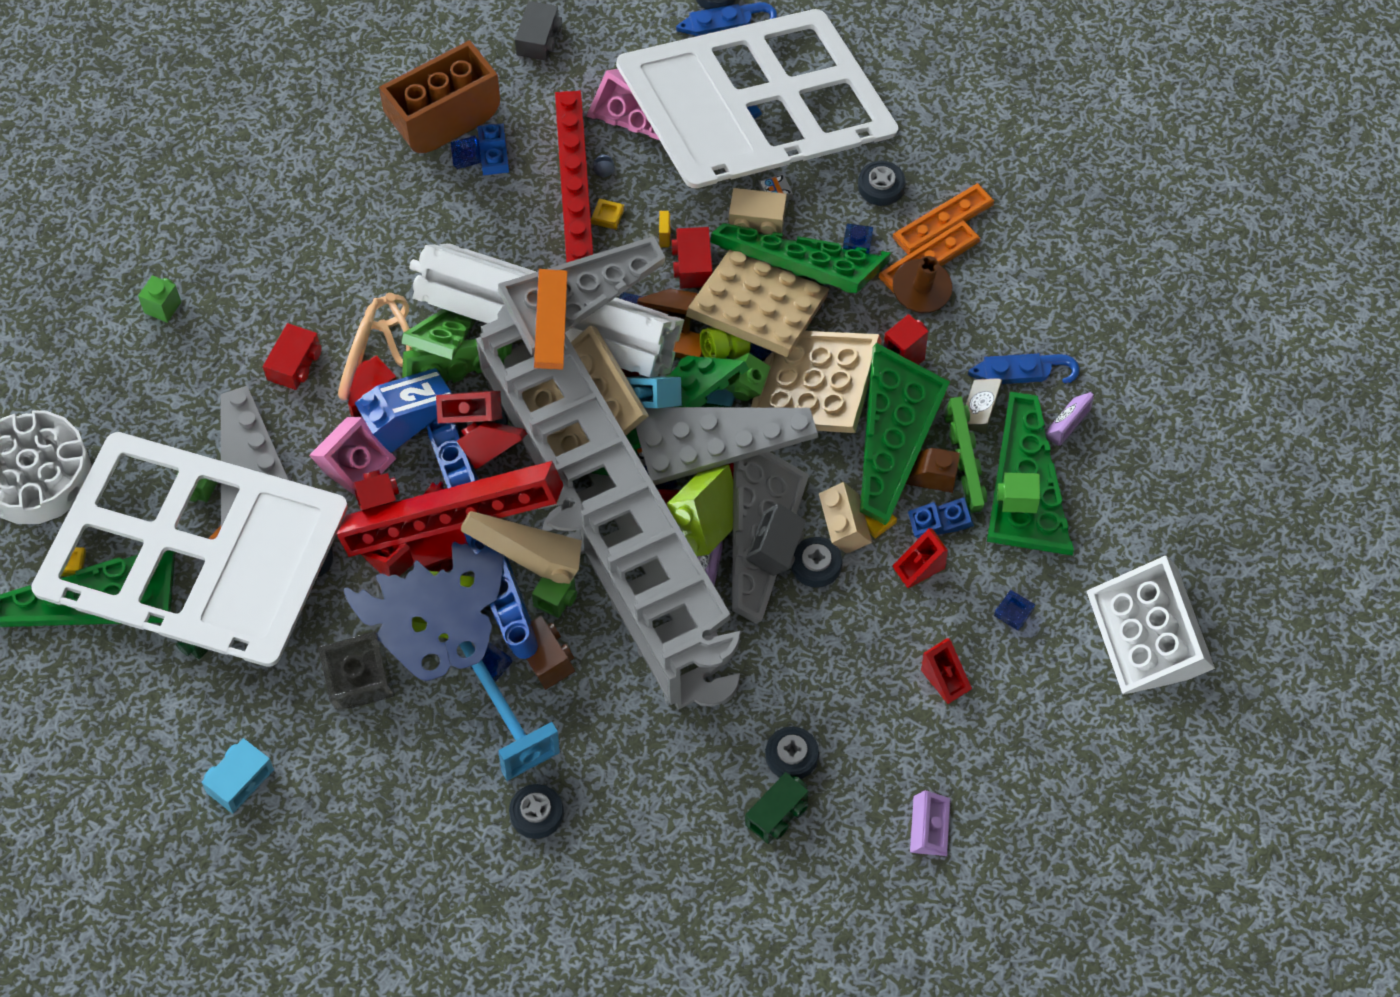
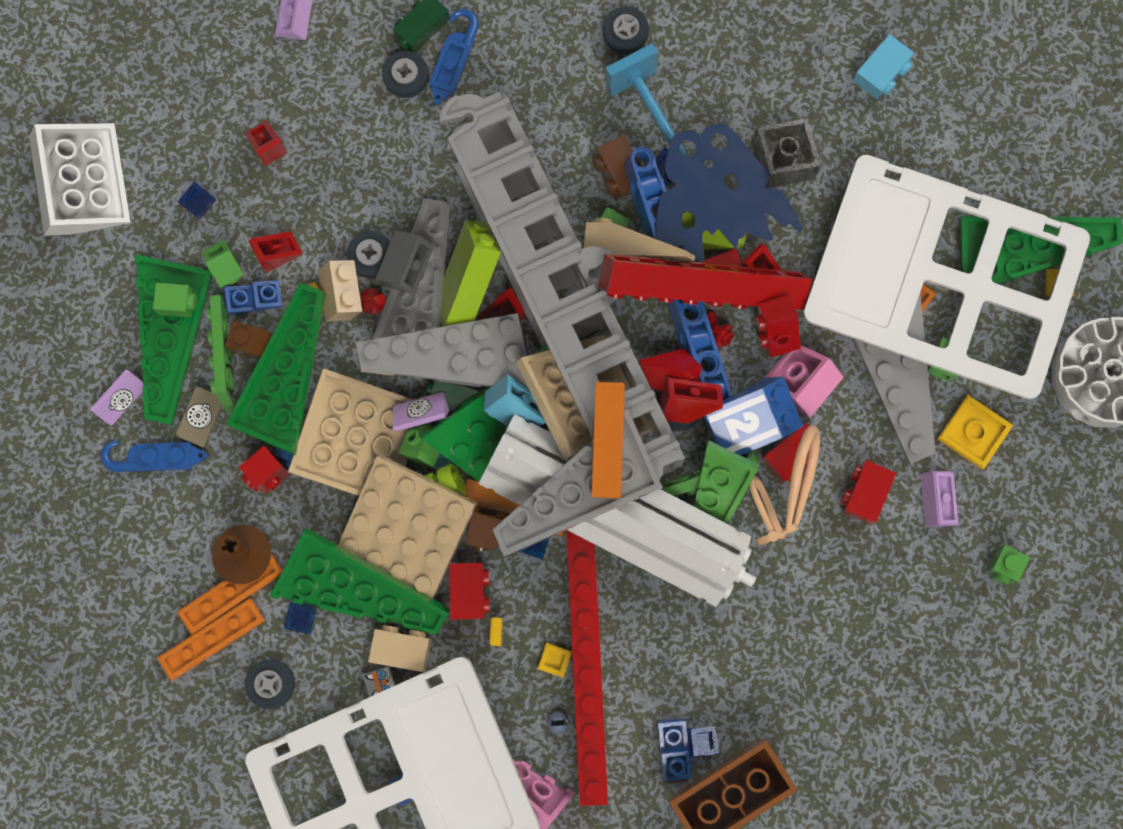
camera: 175 degrees left, 20 degrees up
(177, 418) = (975, 432): none -> yellow tile
(220, 359) = (939, 499): none -> lavender slope
(737, 773) = (453, 58): none -> blue plate
(750, 392) = (420, 411): none -> lavender slope
(812, 514) = (372, 301): none -> red plate
(976, 540) = (222, 263): none -> bright green brick

